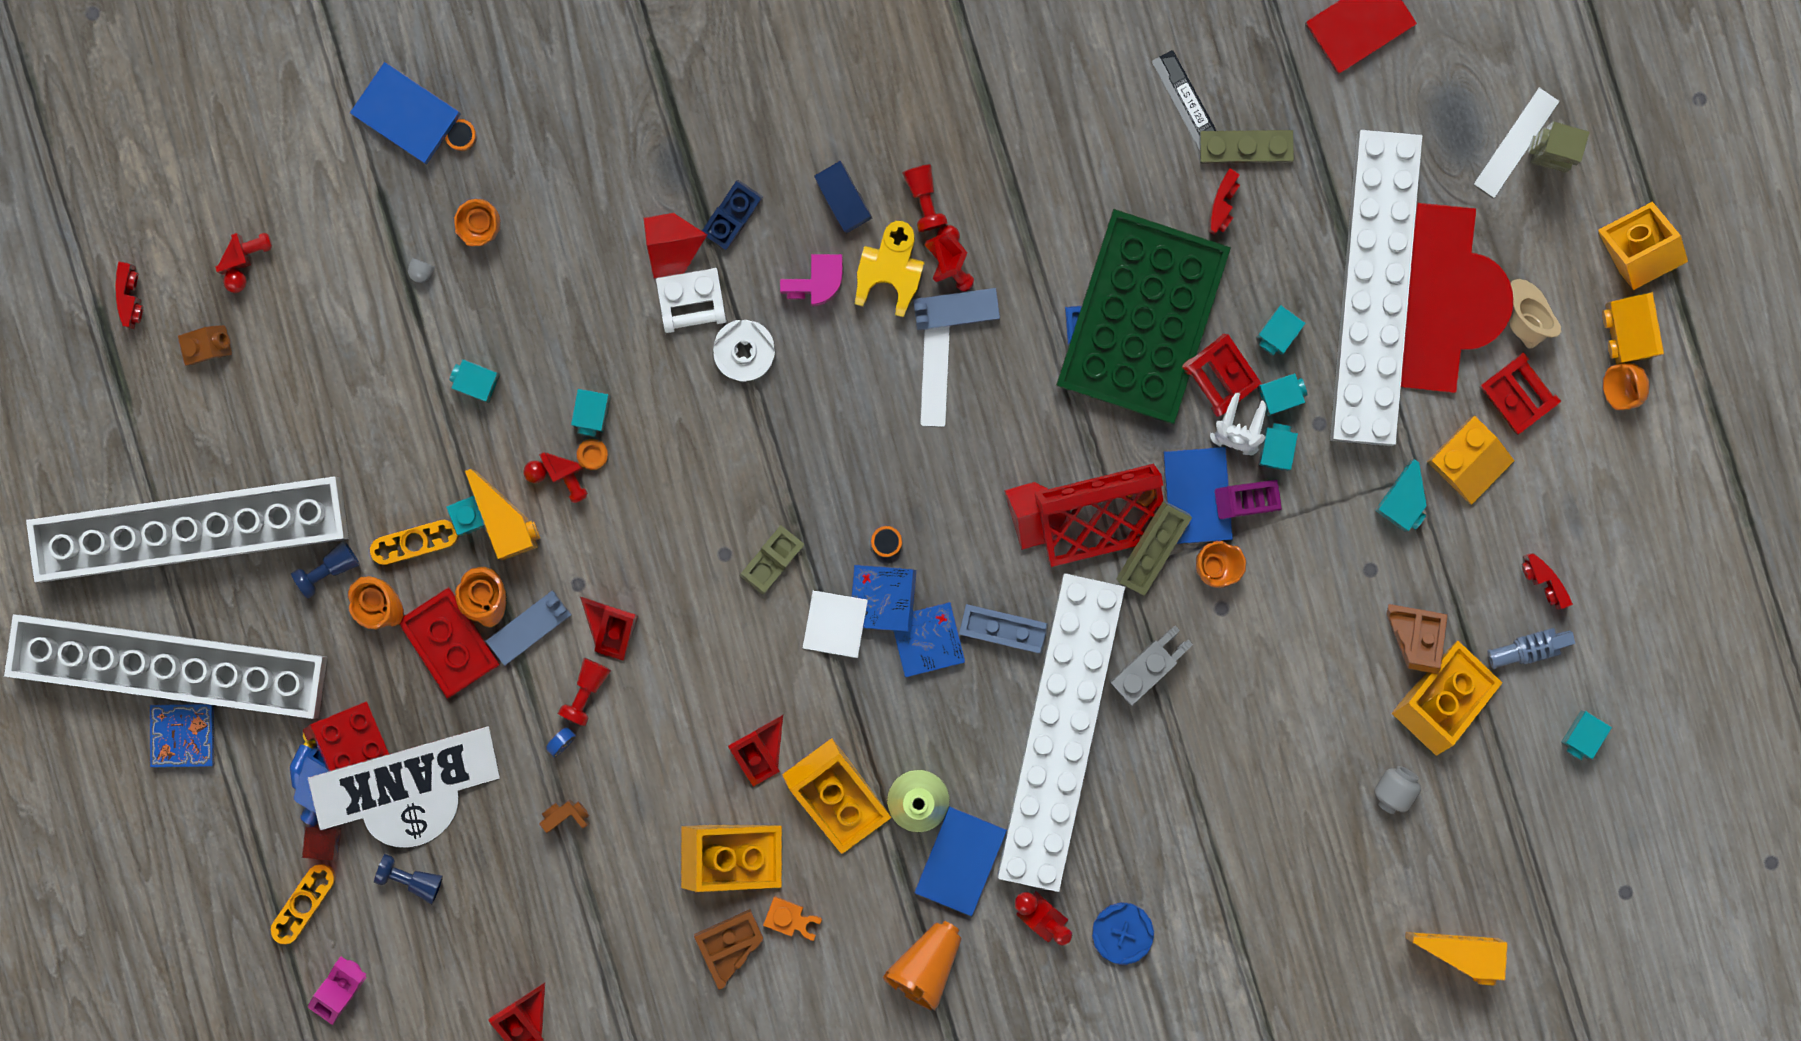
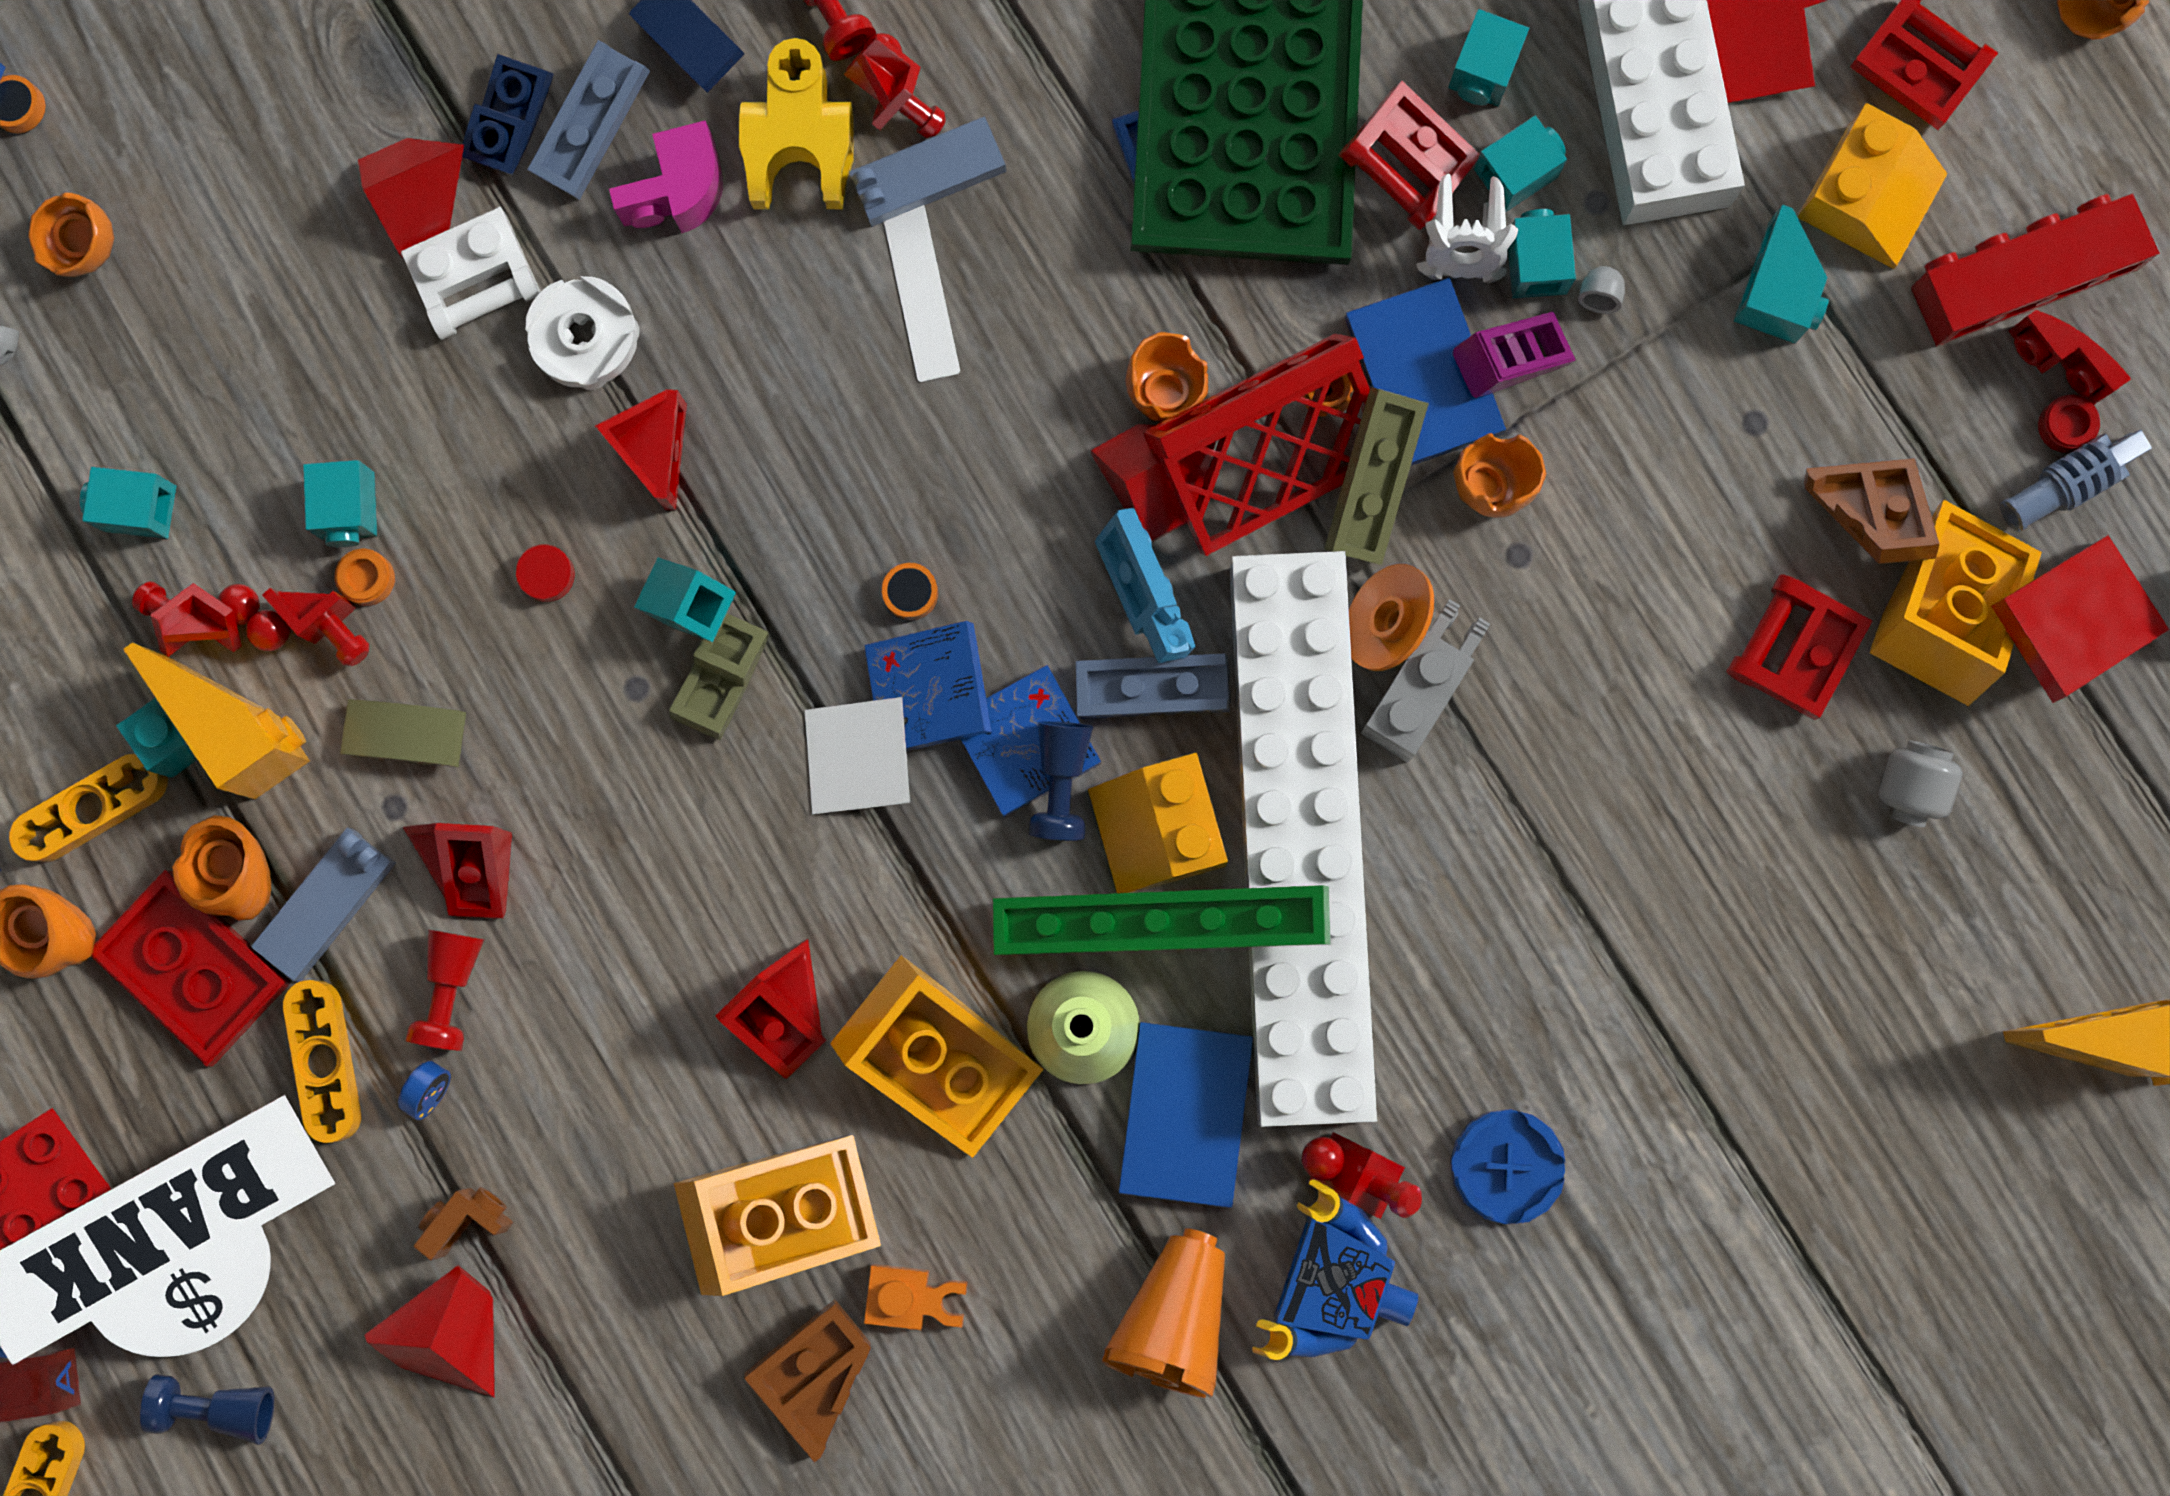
camera: 10 degrees left, 5 degrees down
(499, 454) = (196, 614): none -> red piece
(500, 734) = (300, 1049): none -> light orange beam
(540, 873) = (444, 1333): none -> red slope
(594, 546) = (403, 733): none -> olive slope
(691, 478) = (545, 573): none -> red tile
(765, 516) = (685, 599): none -> teal brick
(767, 425) = (651, 442): none -> red slope
(777, 231) = (588, 120): none -> sand blue hinge
(945, 655) = (1062, 757): none -> dark blue piece
(973, 757) = (1162, 920): none -> green plate
(986, 705) = (1158, 825): none -> light orange slope
(1012, 575) = (1143, 587): none -> dark azure hinge
(1015, 969) = (1335, 1283): none -> torso
(1056, 463) = (1166, 376): none -> orange hair
(1140, 626) = (1390, 616): none -> orange dish
(1307, 475) = (1602, 290): none -> light grey hinge
(1363, 707) = (1815, 656): none -> red plate
(1507, 725) = (2080, 618): none -> red tile
(1538, 616) = (2068, 423): none -> red tile
(1542, 528) = (2033, 269): none -> red brick

